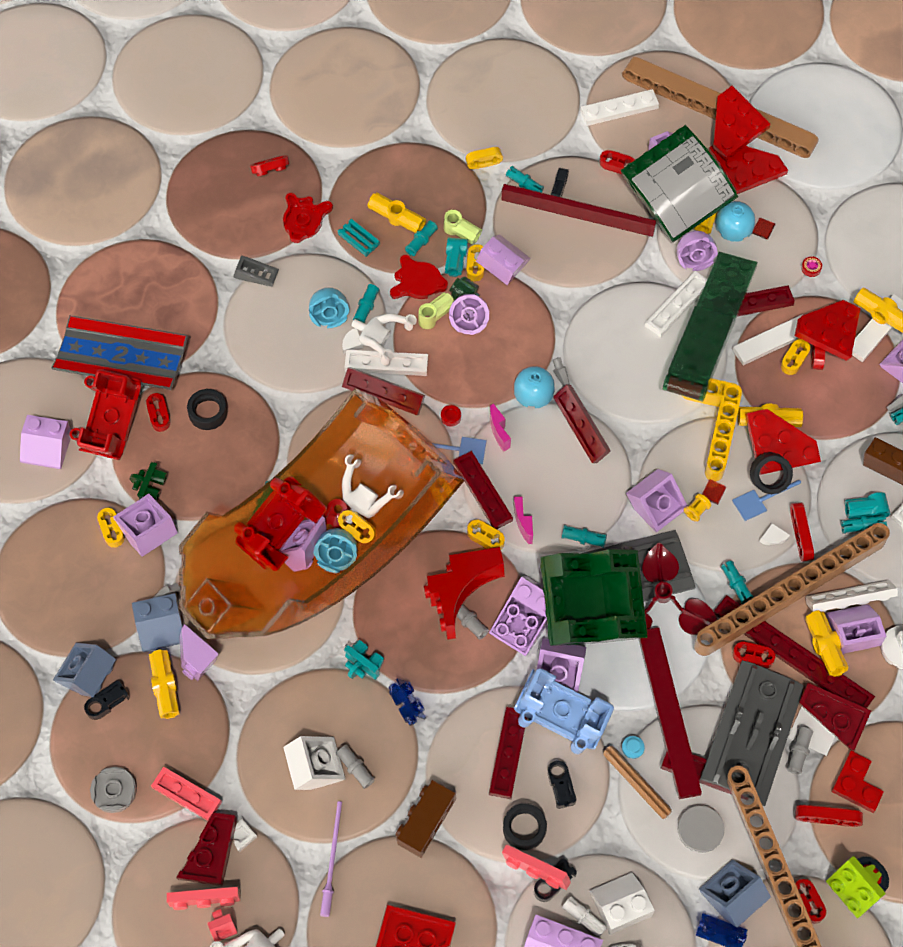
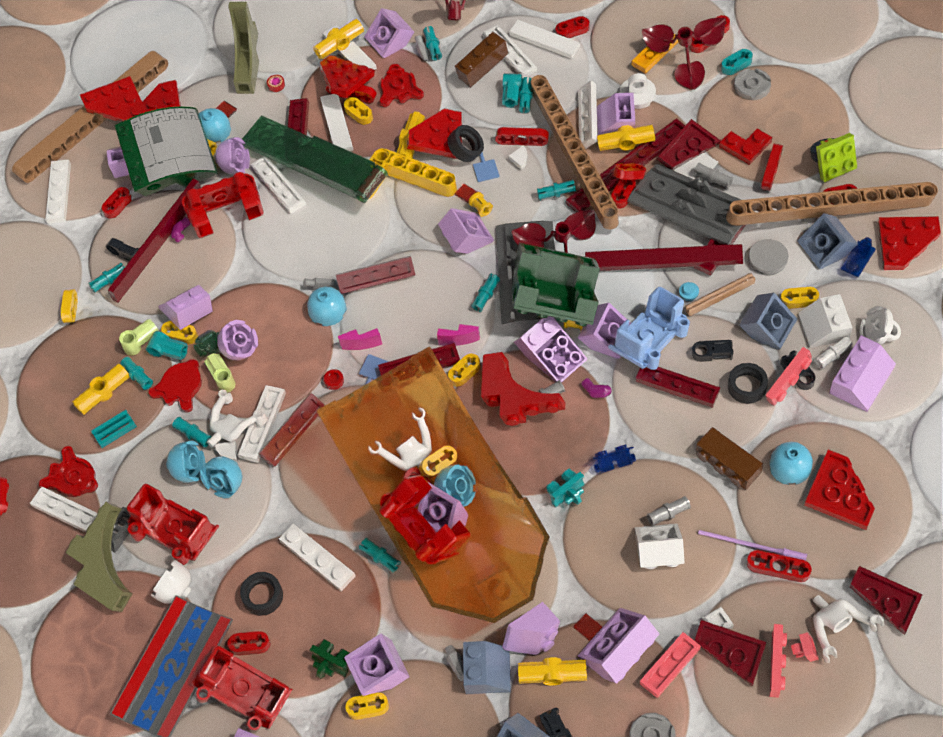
camera: 70 degrees left, 5 degrees down
(199, 741) = (619, 644): none -> lavender slope
(202, 267) = (94, 551): none -> olive arch
(202, 332) = (173, 583): none -> white cylinder
(218, 711) = (587, 627): none -> clear red piece
(253, 448) = (317, 557): none -> white plate
(264, 226) = (63, 509): none -> white plate
(264, 312) = (169, 524): none -> red container
(303, 905) = (796, 563): none -> red beam
(321, 343) = (222, 476): none -> medium azure cylinder
(434, 896) = (791, 463): none -> medium azure cylinder
(485, 670) = (596, 391): none -> magenta arm
(598, 226) = (178, 228): none -> magenta arm
(609, 839) = (768, 320): none -> sand blue slope
(622, 234) = (220, 194): none -> red container
(657, 869) = (799, 297): none -> yellow beam
(775, 653) = (629, 171): none -> red beam
(829, 227) = (245, 45): none -> olive arch
(841, 389) = (399, 86): none -> red tile

